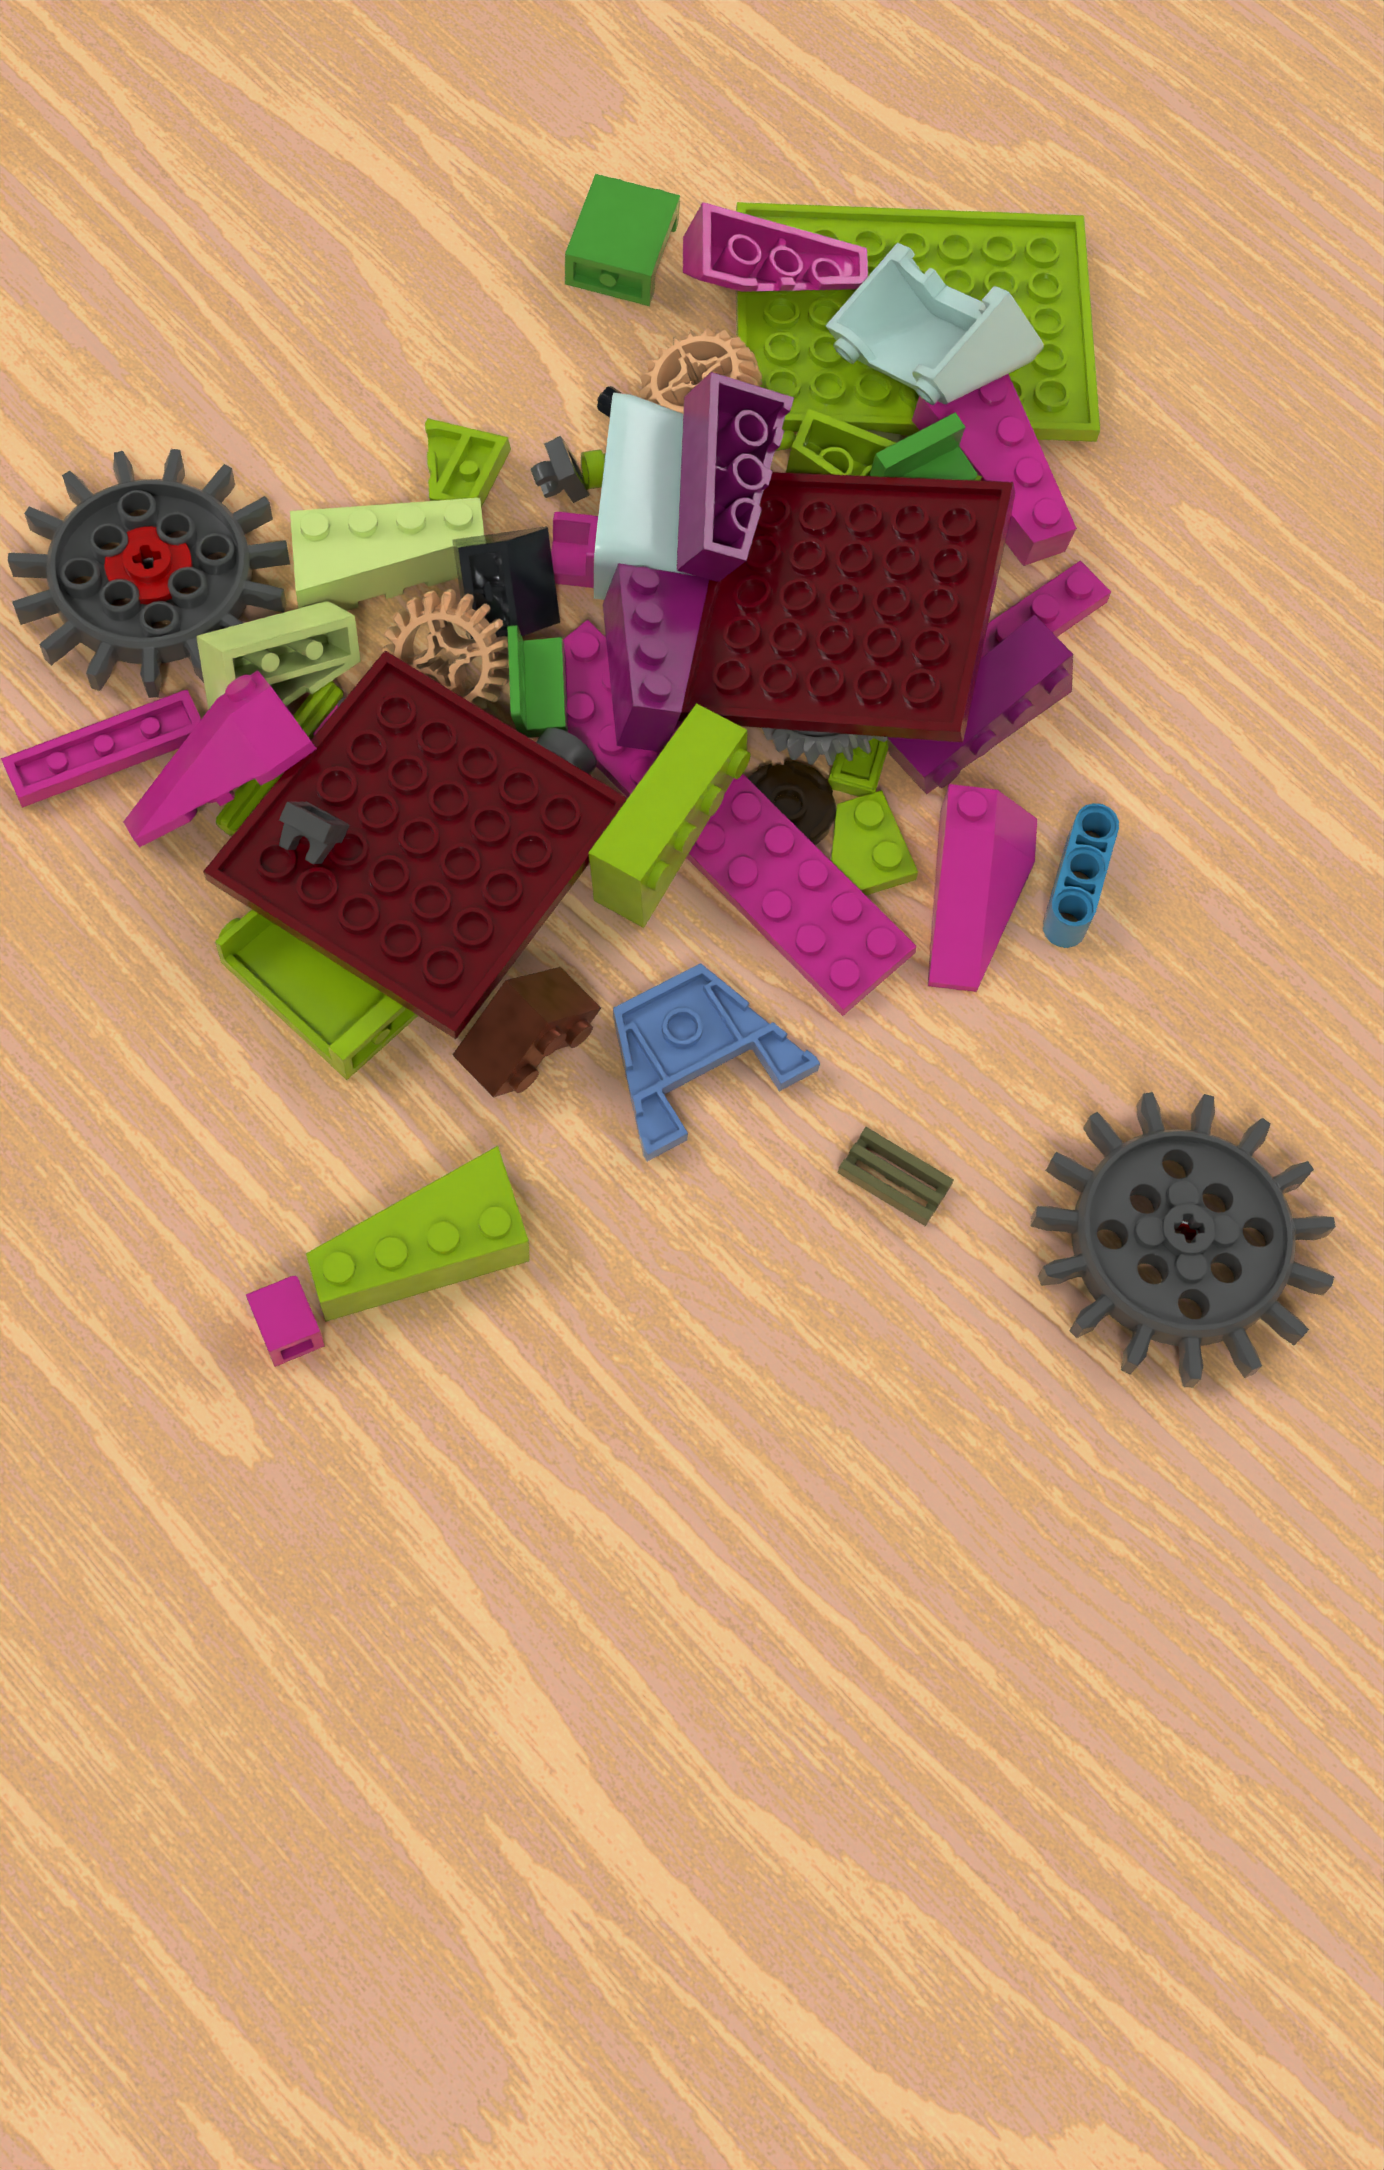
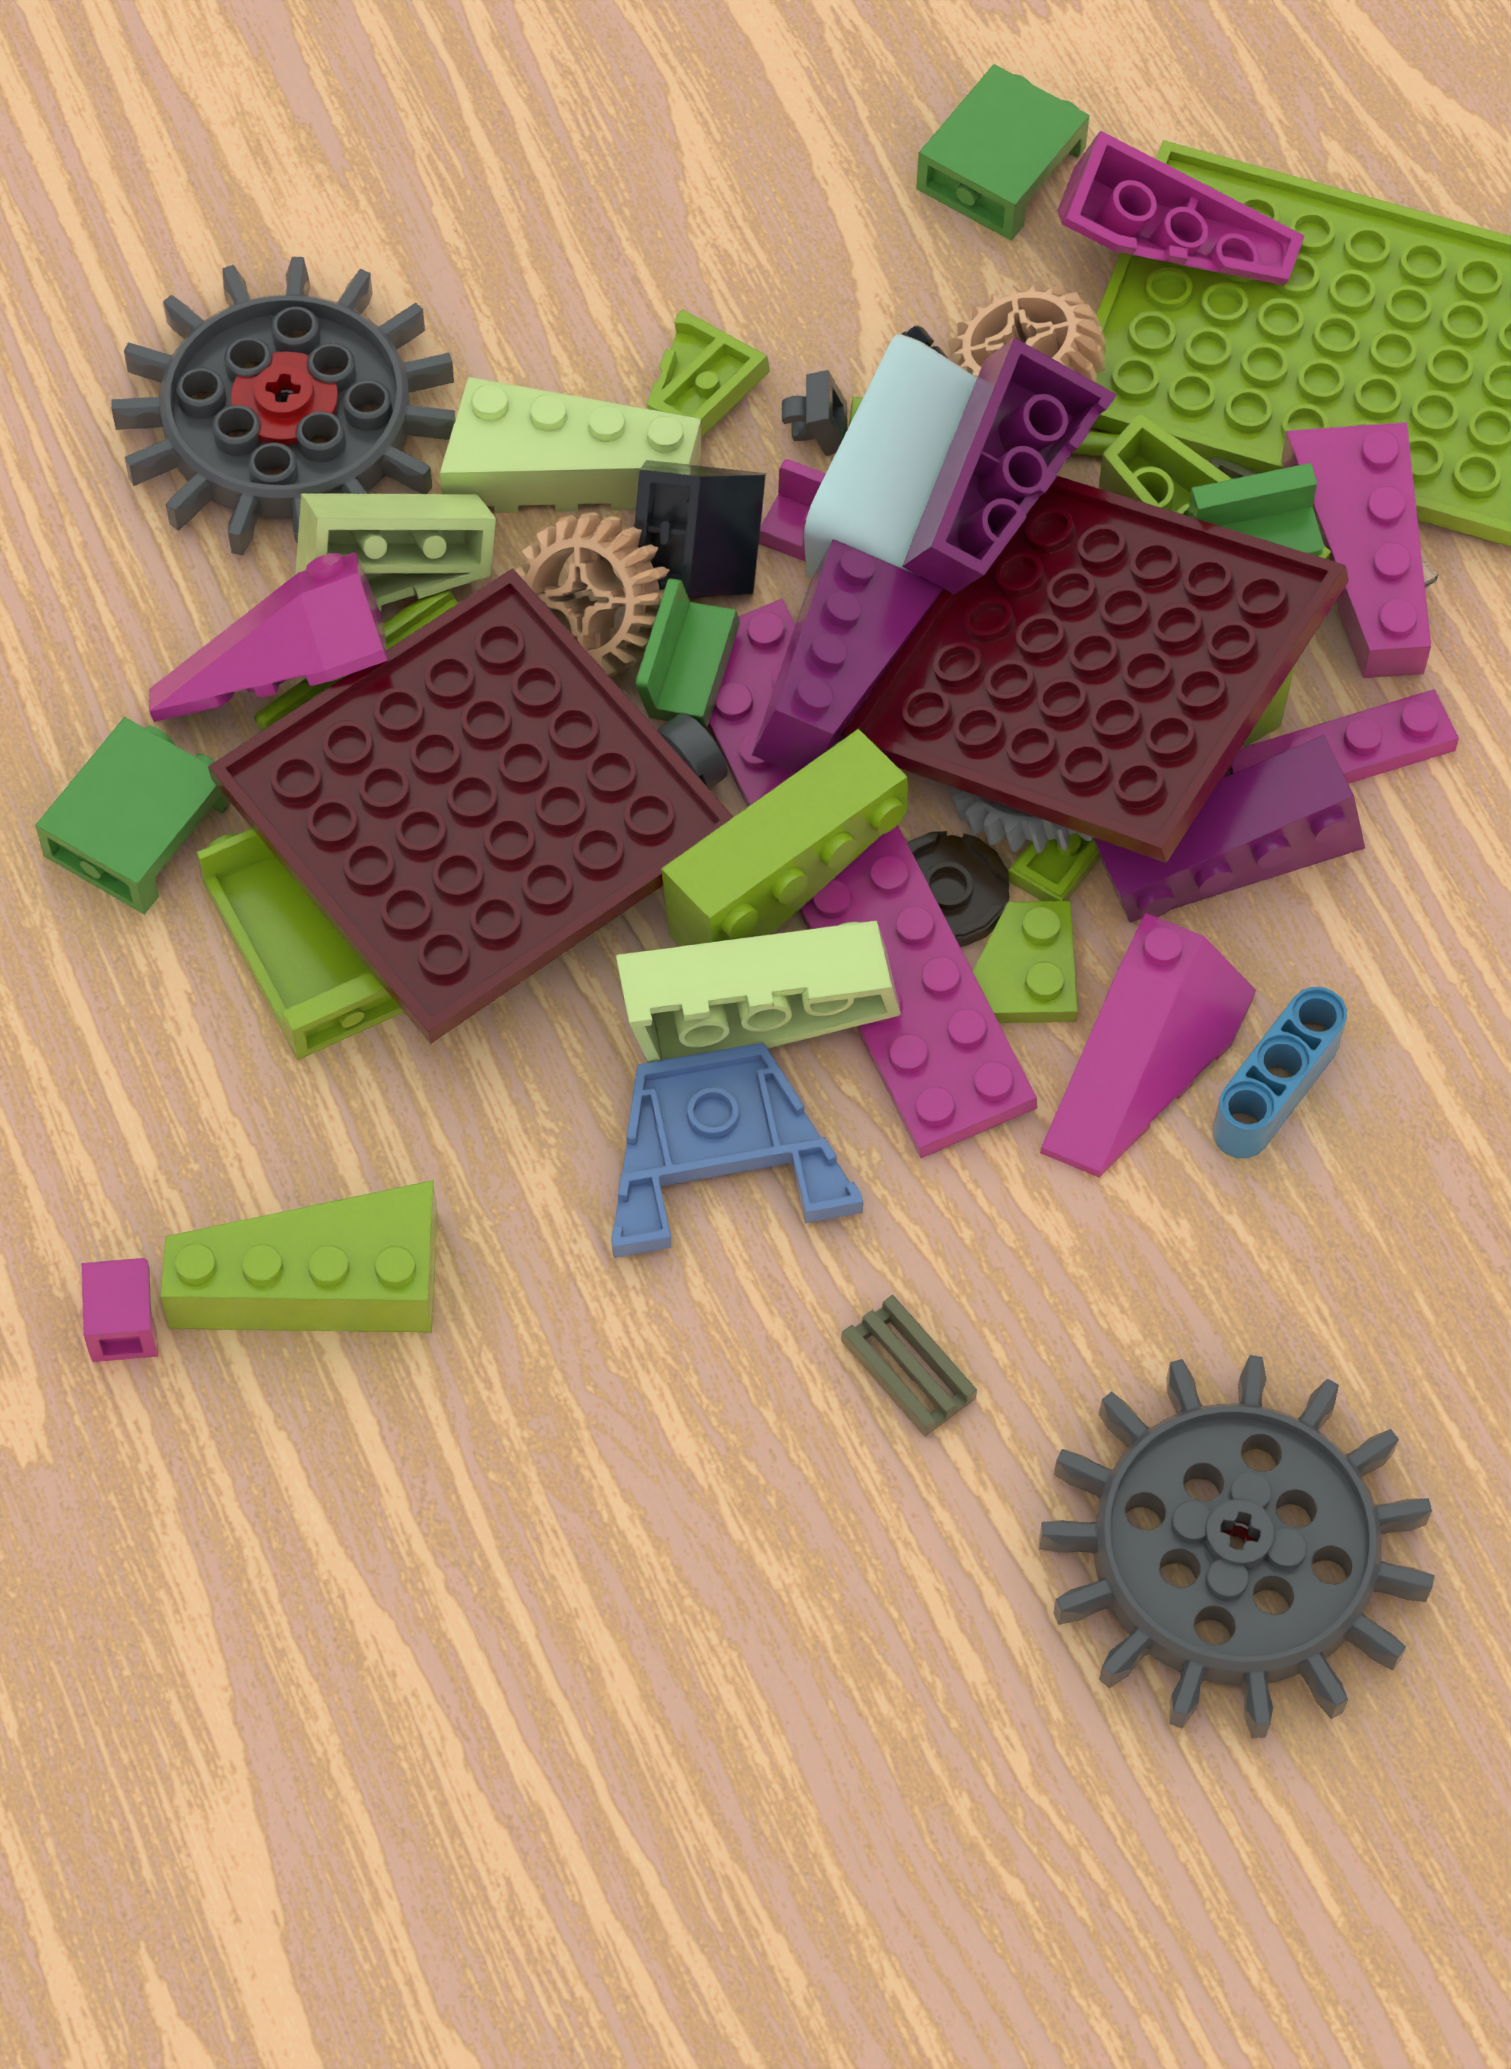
camera: 25 degrees right, 5 degrees down
(101, 748) = (152, 596): dark pink plate -> none
(147, 924) = (129, 812): none -> bright green panel
(316, 825) = (352, 747): dark grey tile -> none
(522, 1026) = (519, 1049): copper brick -> none
(688, 924) = (757, 989): none -> yellowish green wedge
(930, 332) = (1328, 356): light aqua windscreen -> none

